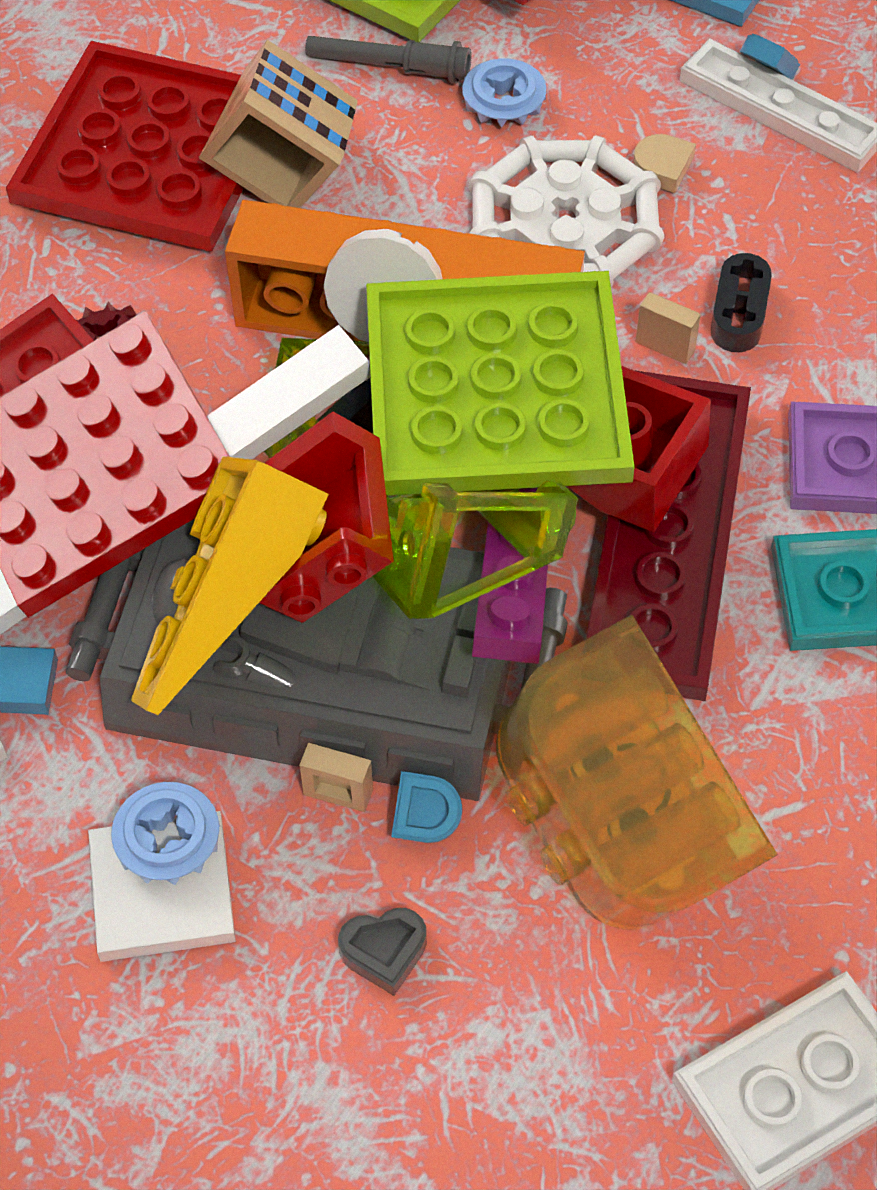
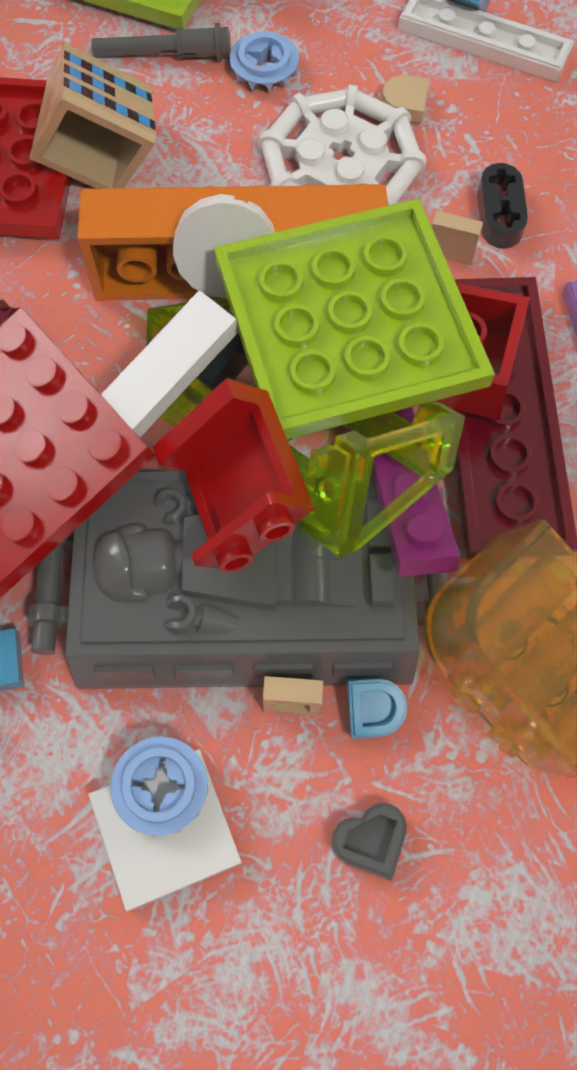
camera: 15 degrees left, 10 degrees up
(249, 537) = (176, 516): yellow wedge -> none

